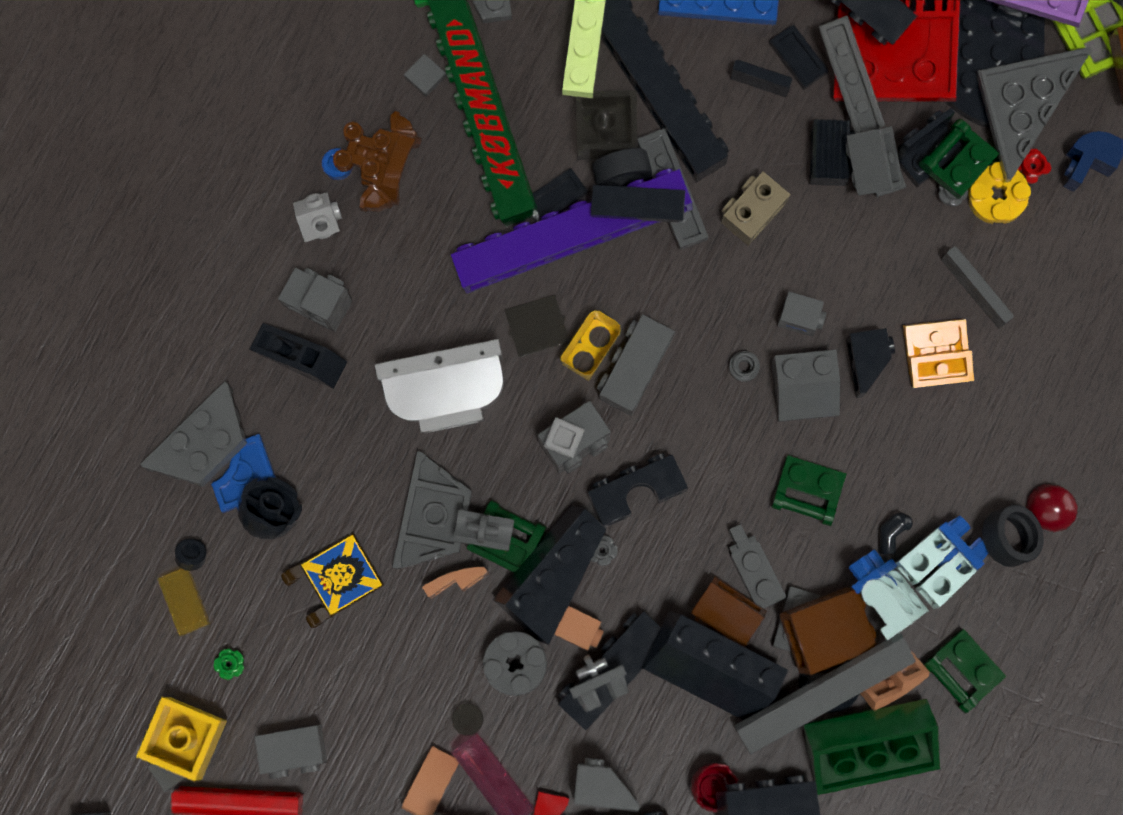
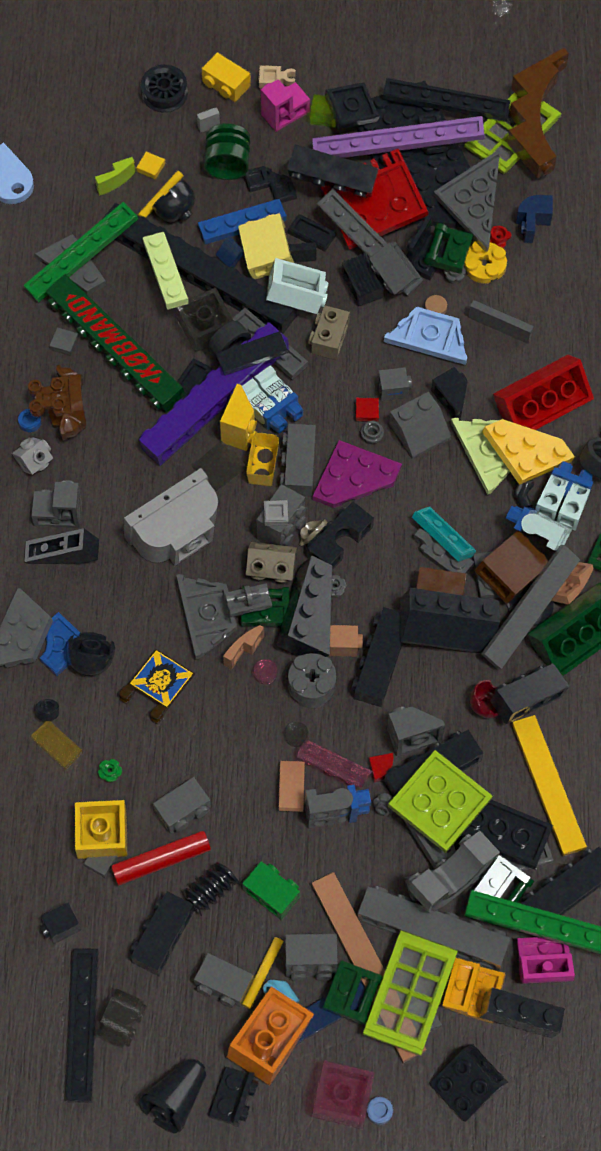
camera: 30 degrees left, 15 degrees down
(468, 622) = (265, 671): none -> clear pink tile
(537, 487) = (271, 561): none -> dark tan brick
(581, 283) = (238, 421): none -> yellow slope
(613, 679) = (370, 668): dark grey hips -> none
(614, 459) = (315, 526): none -> dark tan piece
(642, 279) = (272, 400): none -> hips
(681, 43) = (230, 252): none -> dark blue tile
(695, 413) = (354, 475): none -> magenta plate
(728, 144) = (295, 295): none -> light aqua window
(729, 54) = (263, 242): none -> light yellow panel
(753, 332) = (367, 409): none -> red tile
(765, 545) = (444, 534): none -> teal tile
(812, 481) = (454, 484): dark green plate -> none
(876, 455) = (480, 452): none -> yellowish green wing
(880, 266) = (430, 334): none -> light blue wing
(906, 228) = (437, 304): none -> medium nougat tile
(923, 480) = (525, 450): none -> yellow plate
(938, 353) = (494, 370): slope -> none
(982, 413) = (545, 394): none -> red slope

